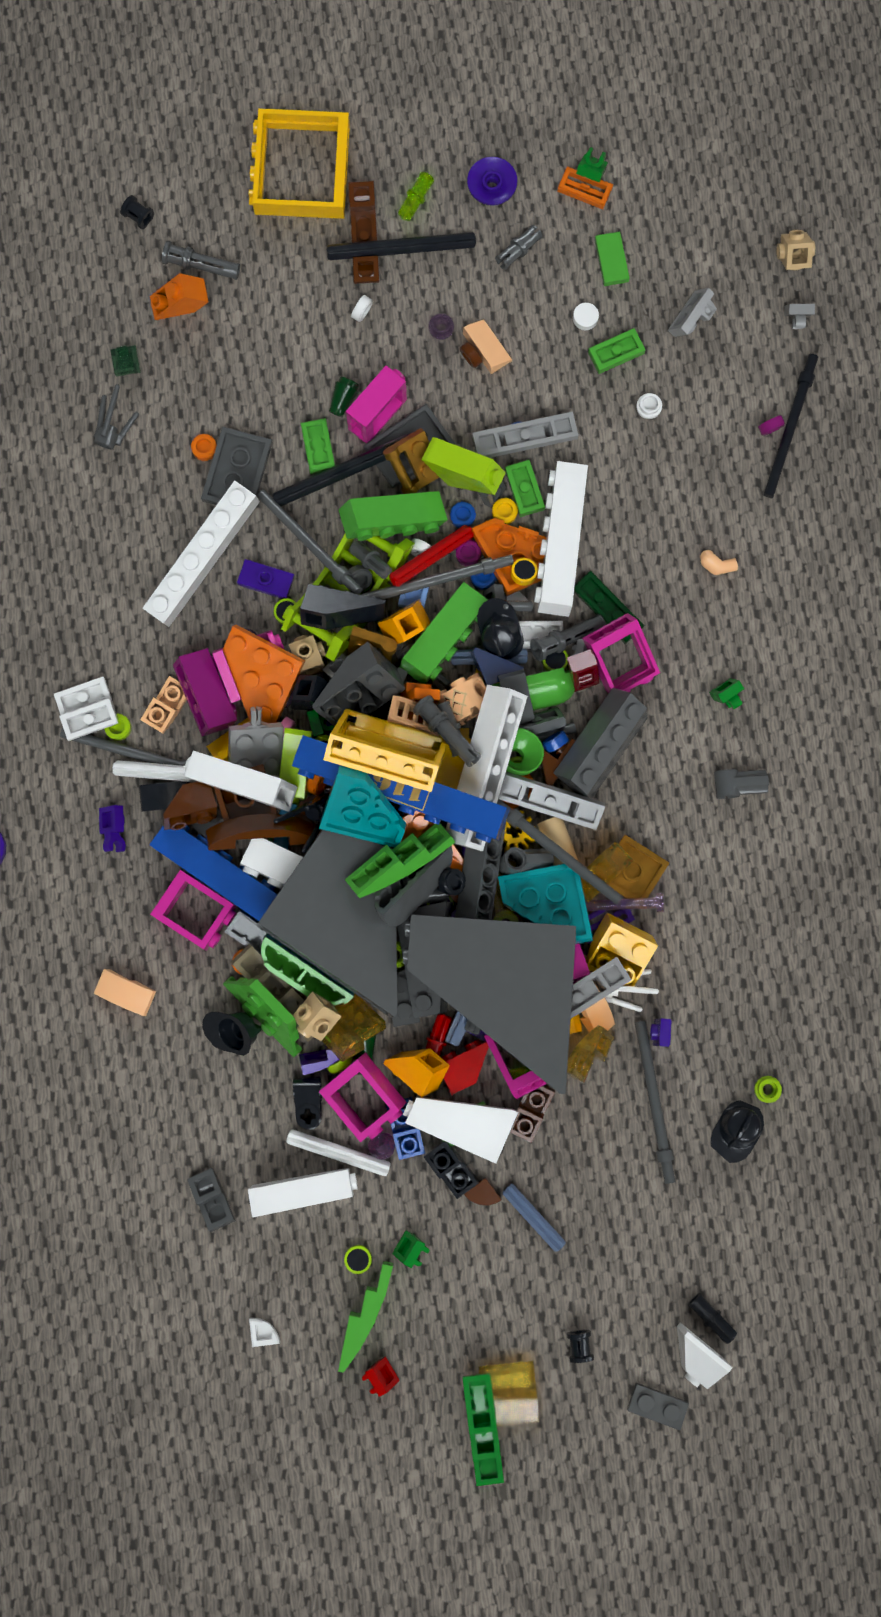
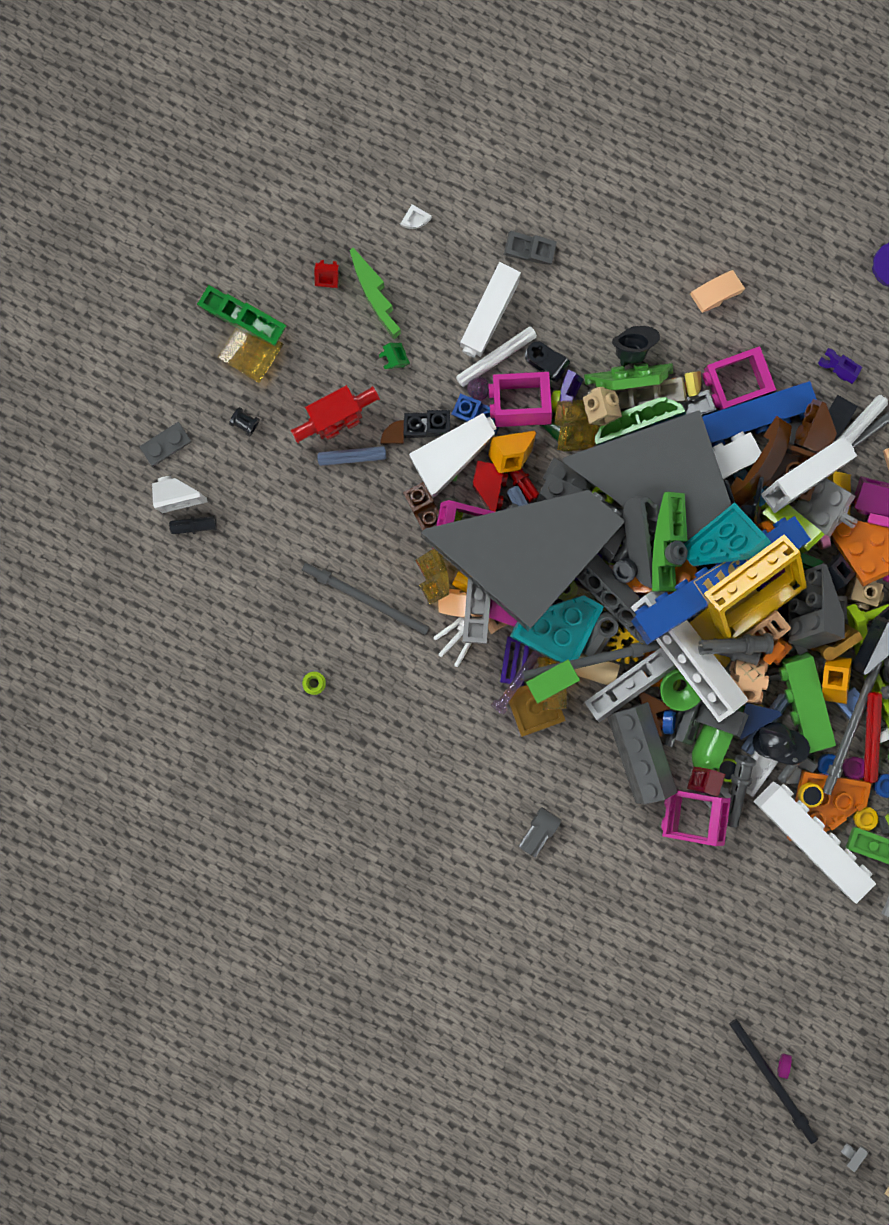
camera: 130 degrees right, 5 degrees up
(228, 950) = (693, 383): none -> light yellow tile
(358, 1259) = (415, 317): black tile -> none
(406, 846) = (676, 553): none -> dark grey plate
(509, 1265) = (334, 413): none -> red brick
(602, 600) = (743, 838): dark green tile -> none
(605, 870) = (552, 681): none -> bright green tile
(624, 941) = (488, 660): yellow slope -> none
(649, 406) = (866, 987): white plate -> none
(661, 1032) = (410, 636): dark purple plate -> none
(716, 565) = (709, 941): light nougat arm -> none
(728, 692) = (611, 874): green tile -> none
(737, 1131) = (302, 640): black piece -> none

